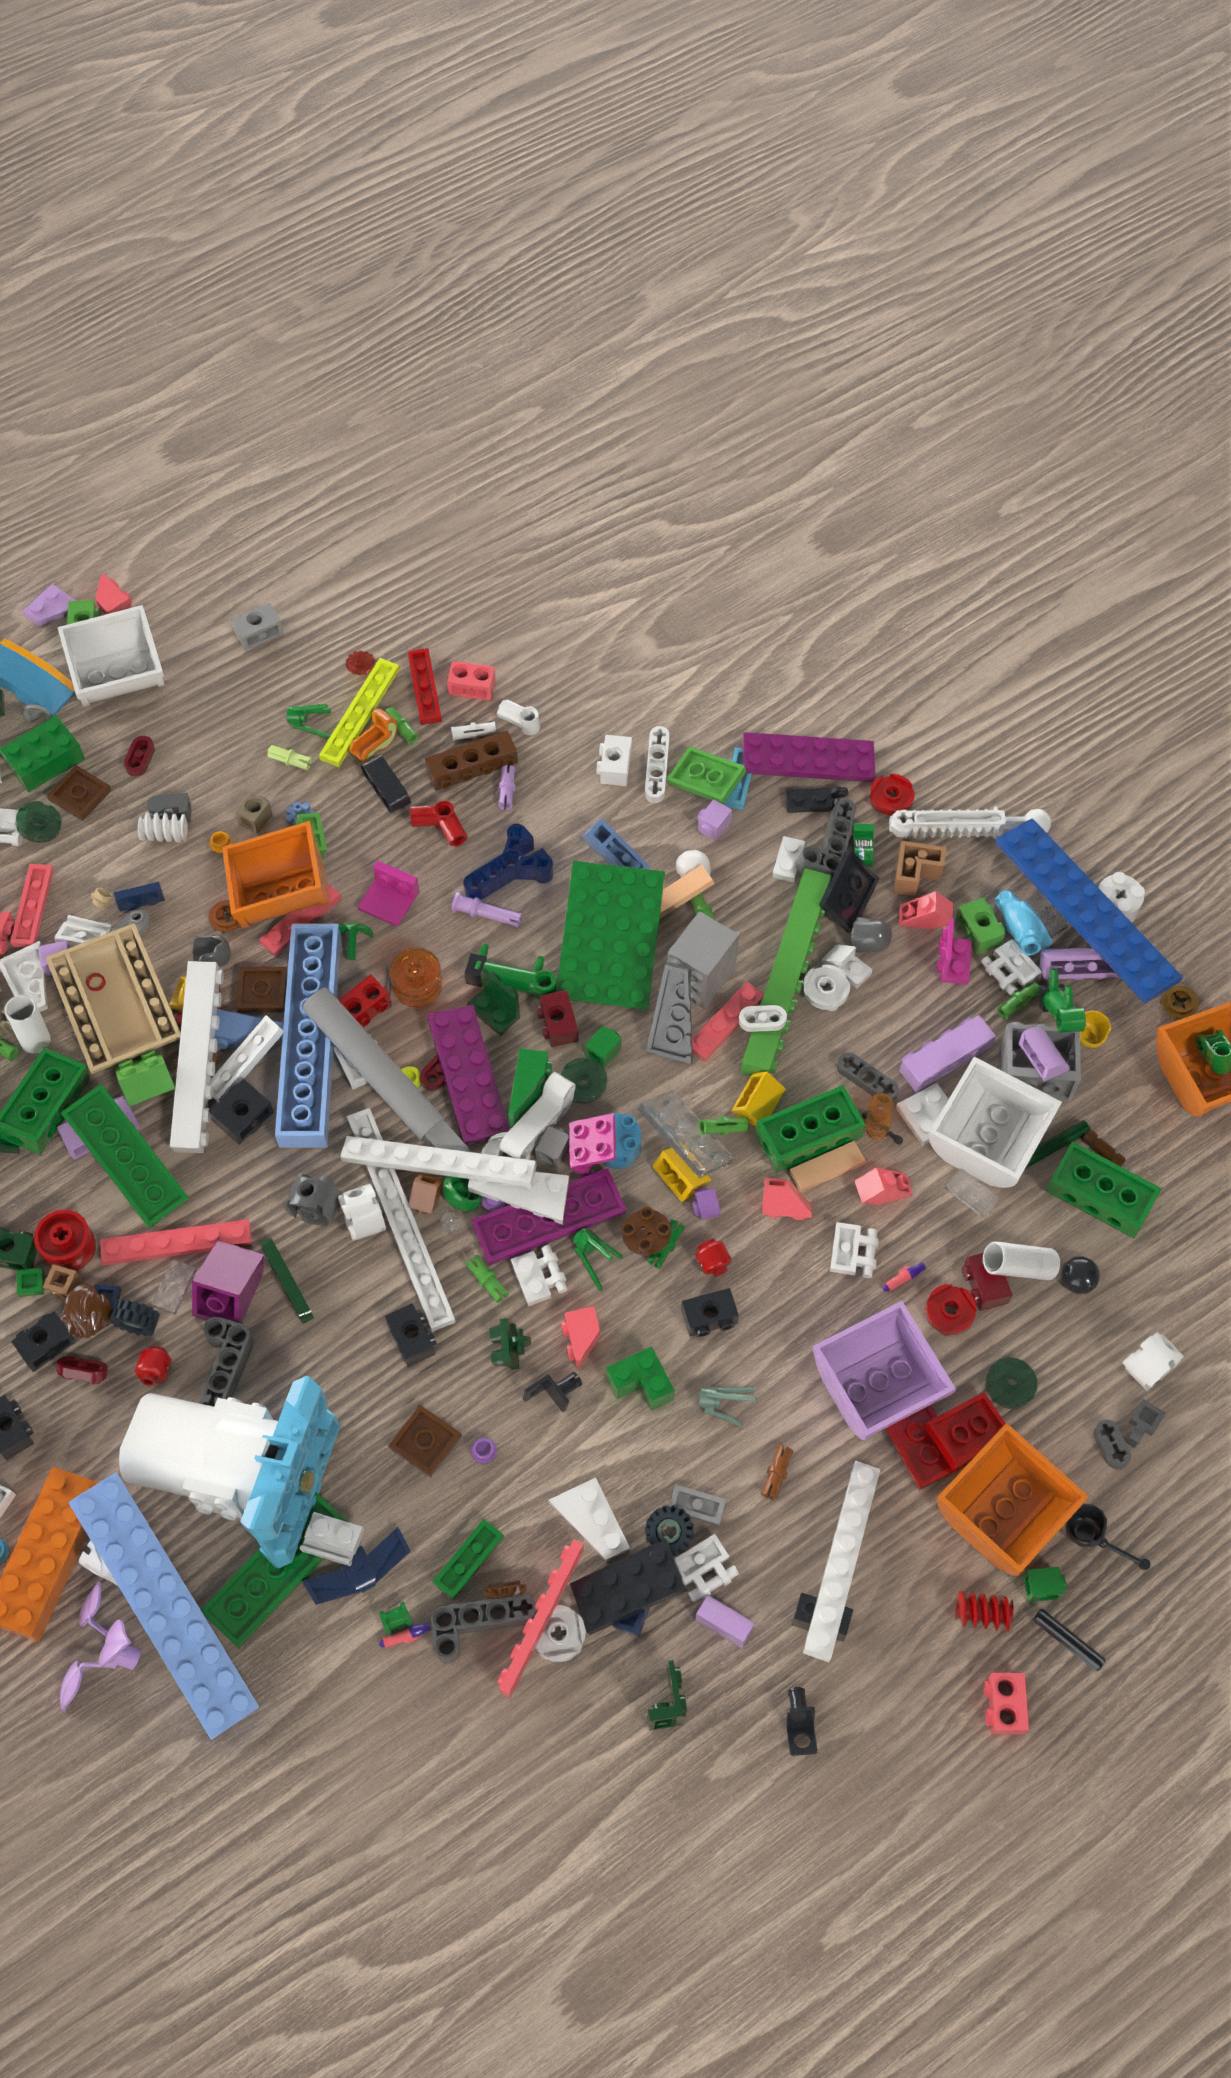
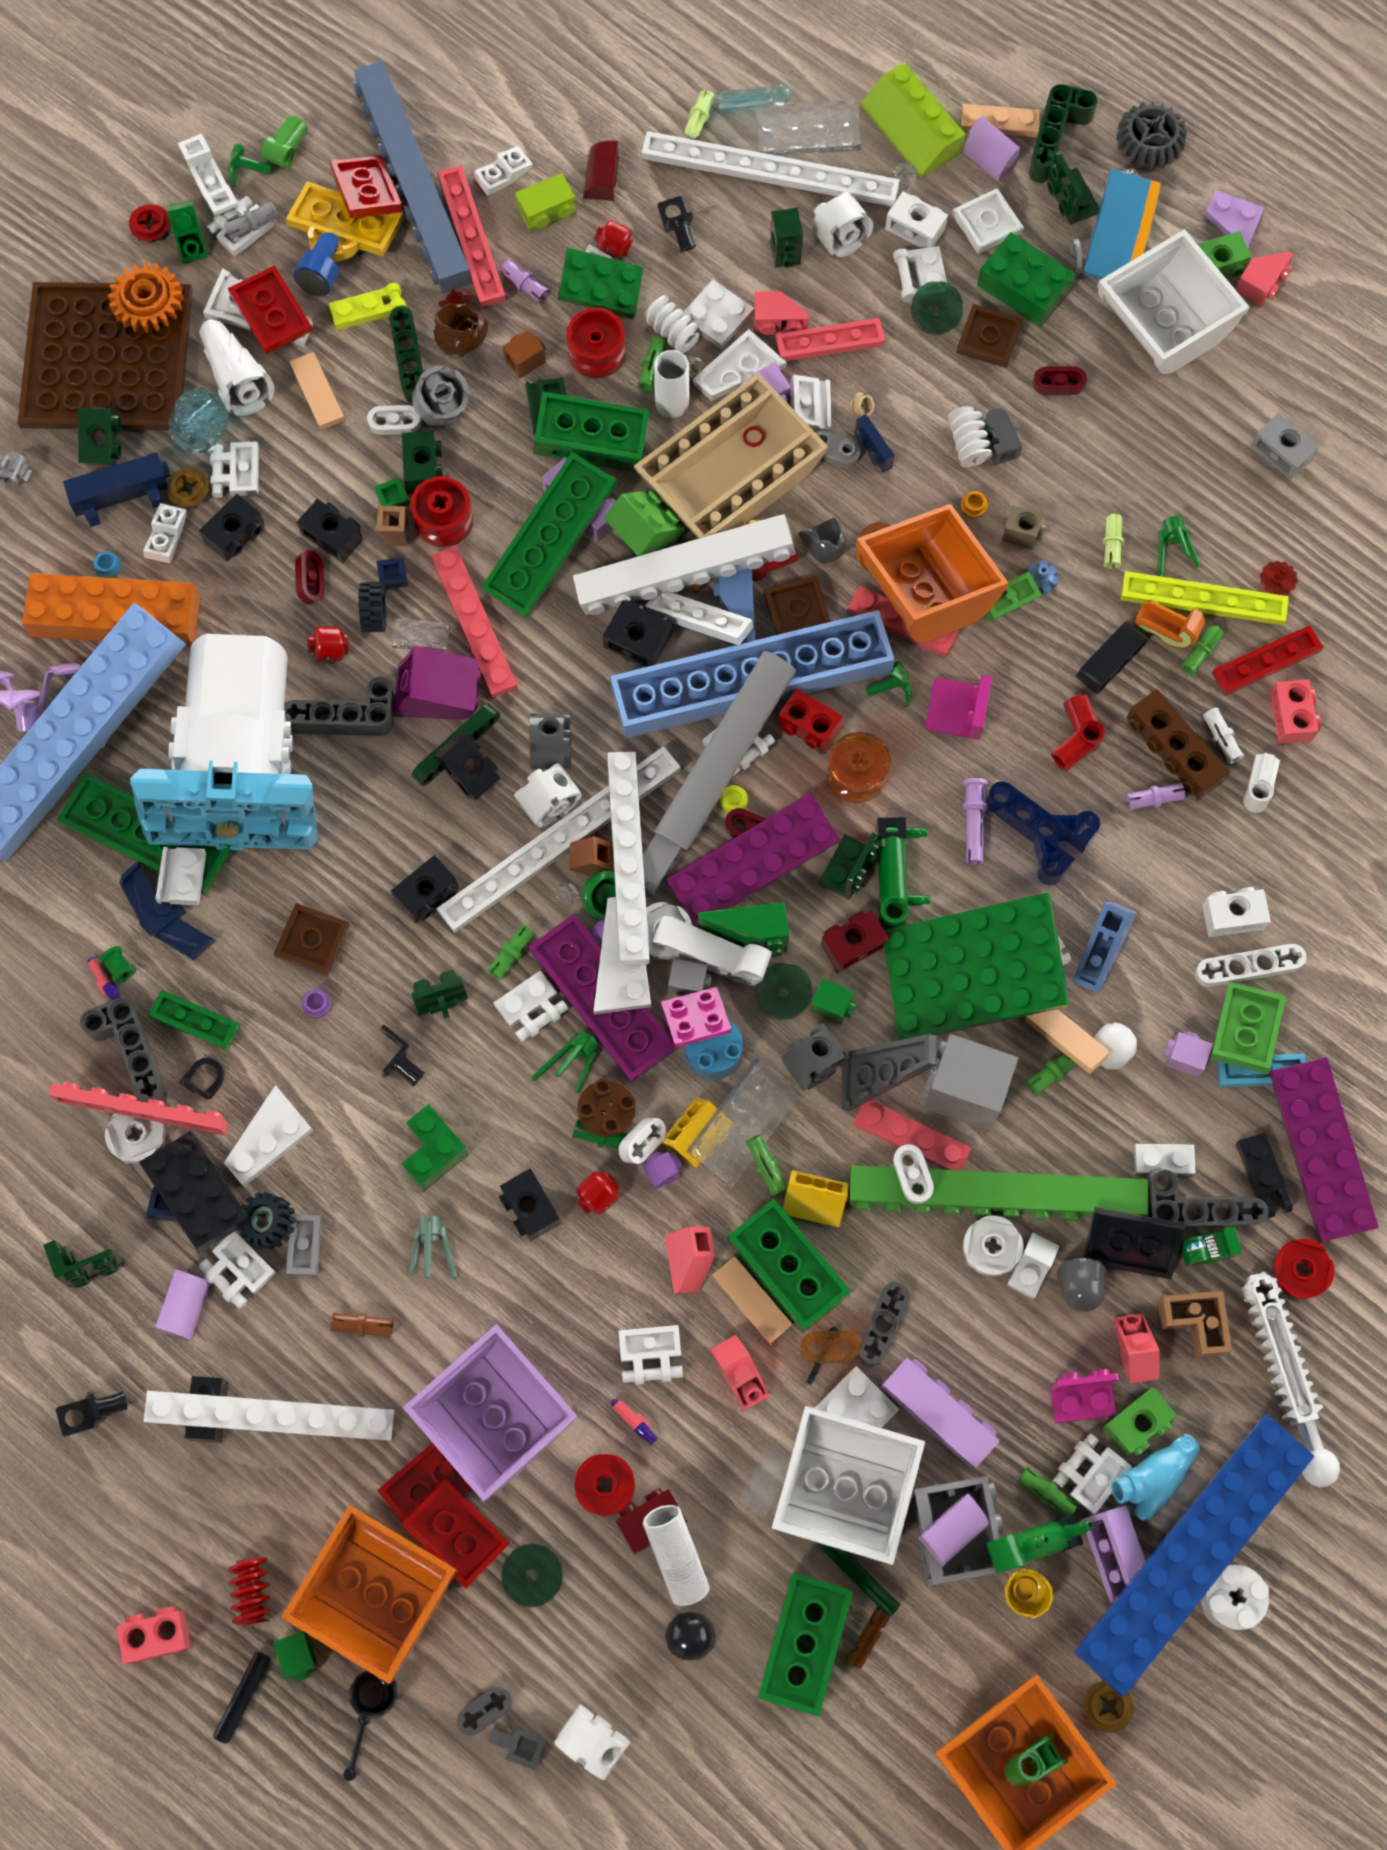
camera: 75 degrees right, 10 degrees up
(86, 1311) = (365, 556): reddish brown hair -> none
(313, 1271) = (452, 759): none -> black brick
(505, 1589) = (165, 1064): reddish brown gear -> none
(528, 1572) = (211, 1091): none -> black piece
(583, 1333) = (469, 1071): coral slope -> none
(648, 1066) = (815, 1058): none -> dark grey brick
(679, 1212) = (640, 1136): none -> white beam

